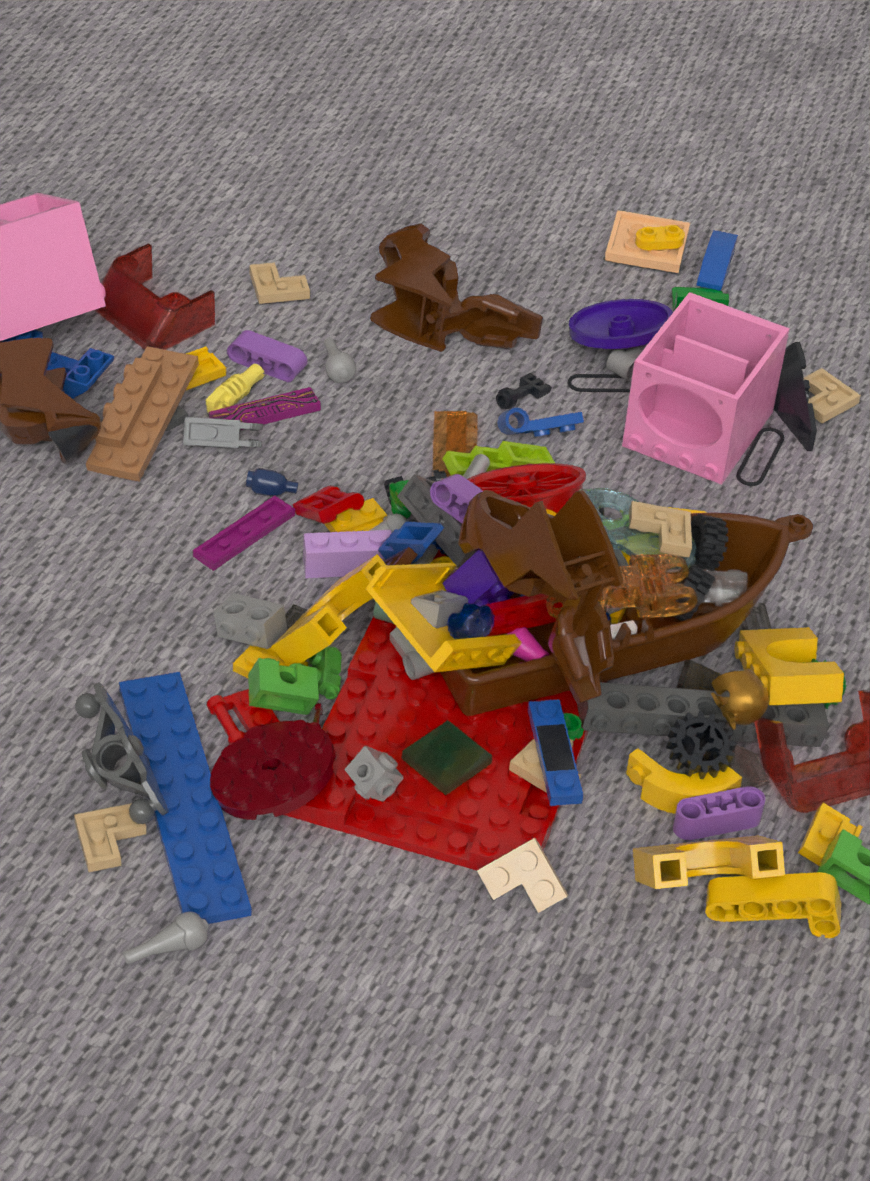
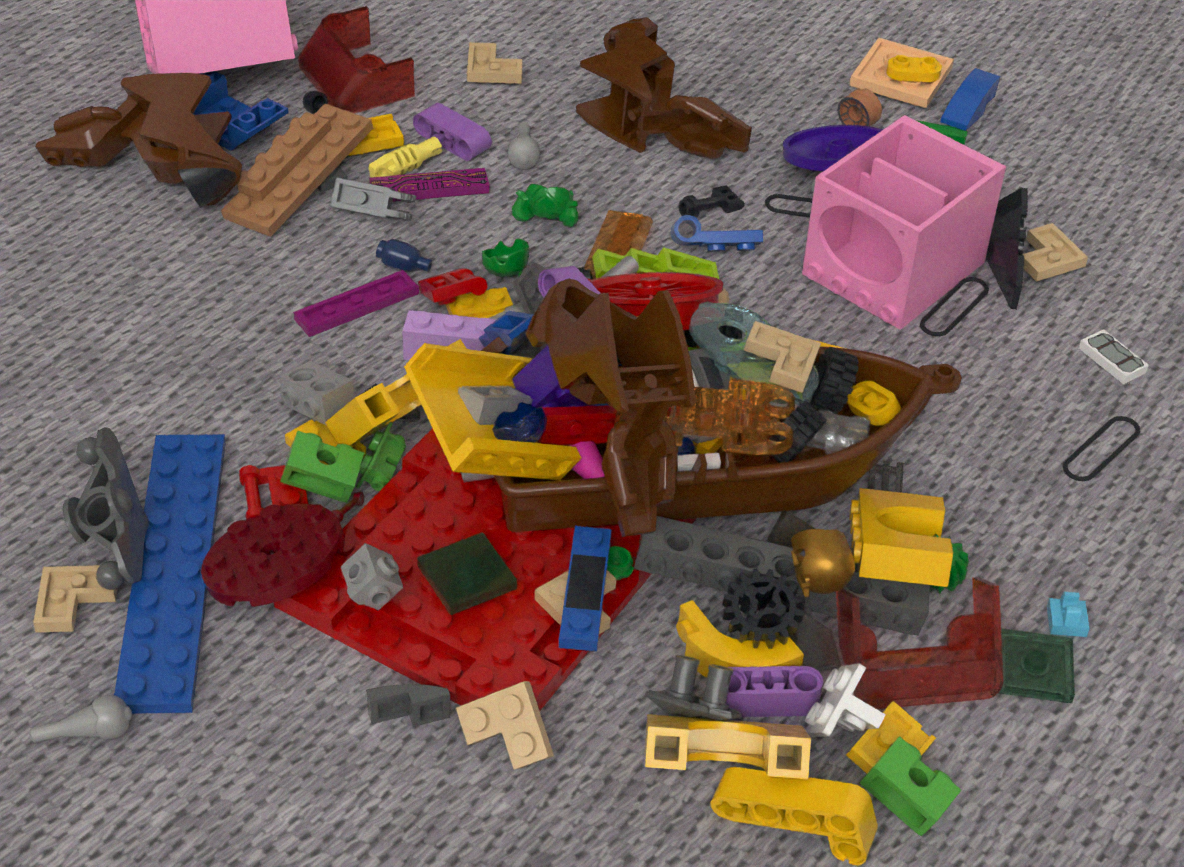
camera: 15 degrees right, 0 degrees up
(127, 344) = (314, 101): none -> black hinge
(365, 472) = (506, 260): none -> green hair
(381, 414) = (546, 203): none -> green hair
(441, 872) = (420, 702): none -> dark grey slope
(624, 283) = (860, 108): none -> nougat wheel
(655, 832) = (682, 700): none -> dark grey connector
(744, 556) = (873, 402): none -> yellow plate
(786, 813) = (841, 706): none -> white bracket

